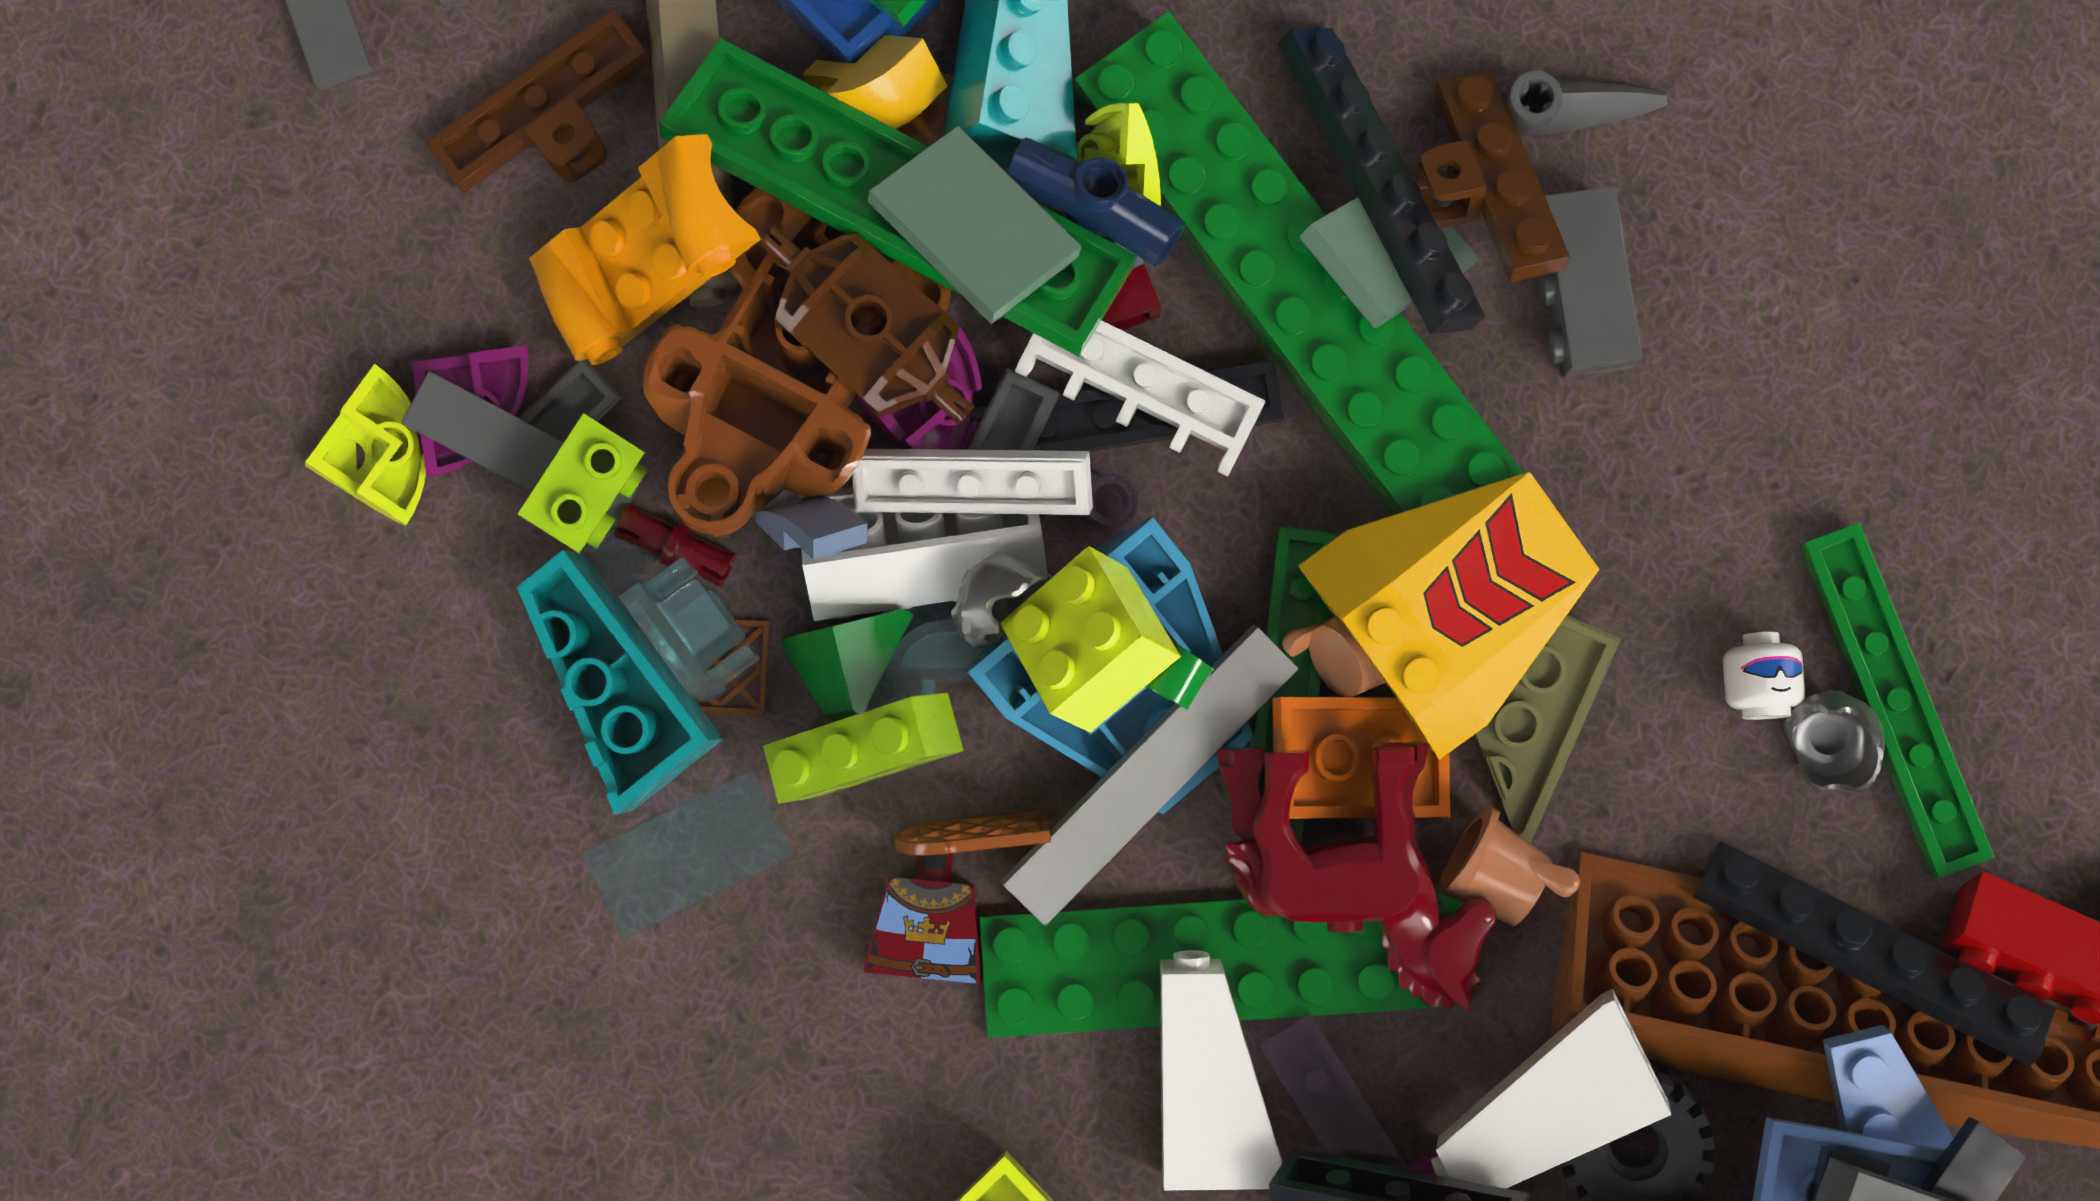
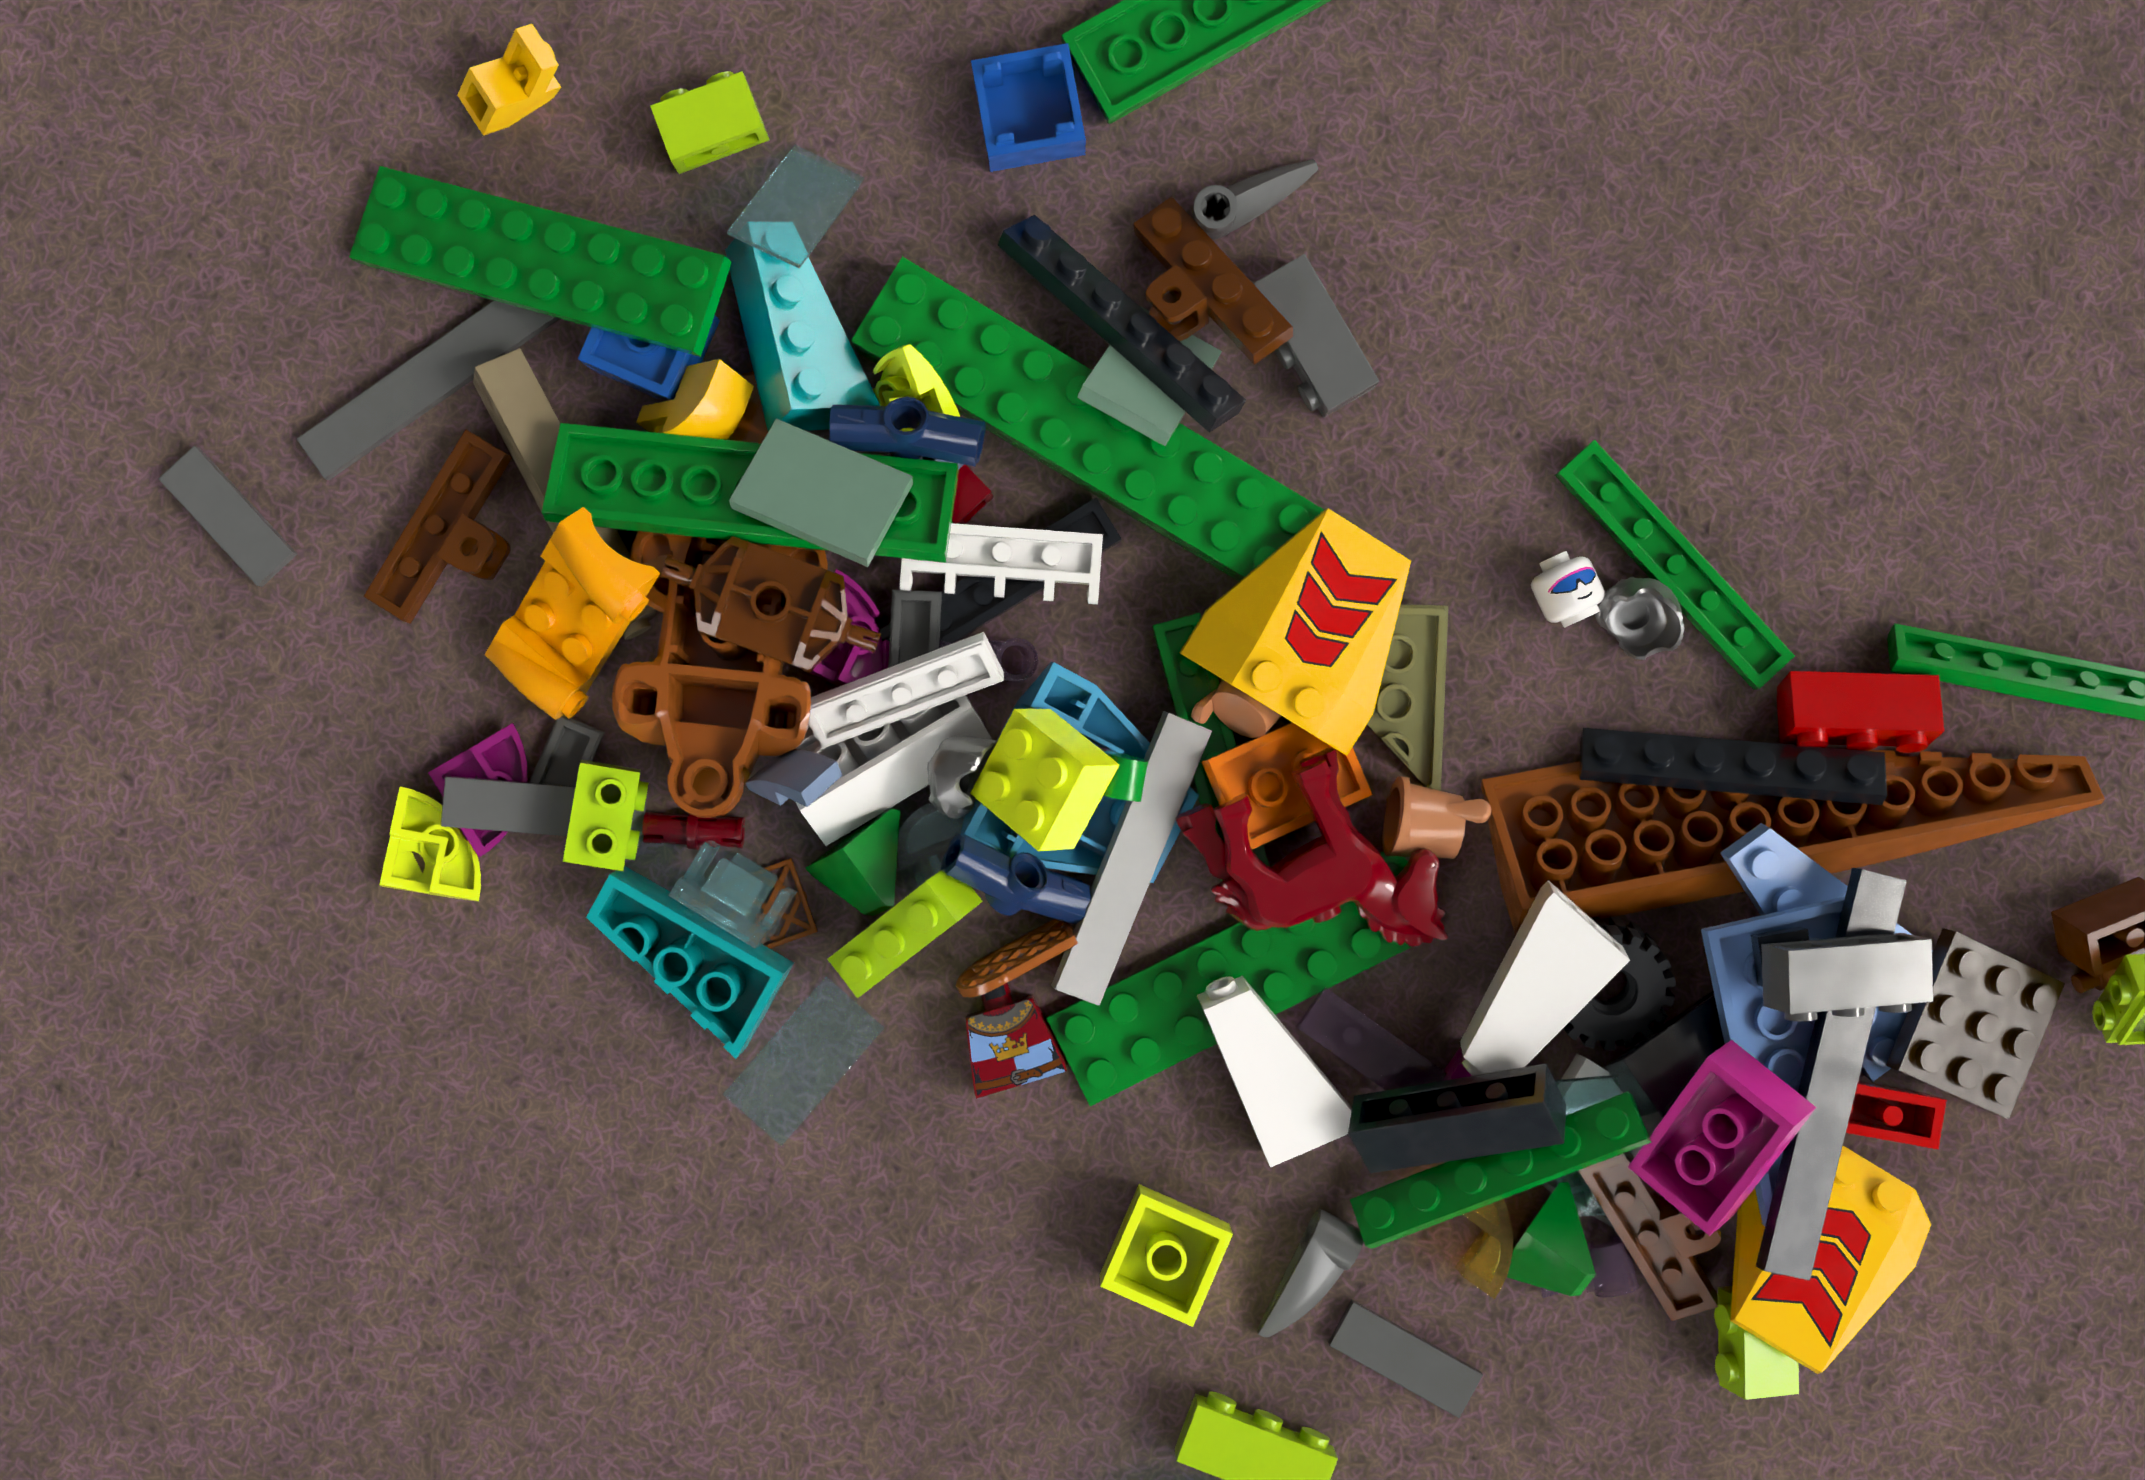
camera: 25 degrees left, 5 degrees up
(1010, 743) = (1016, 881): none -> dark blue piece

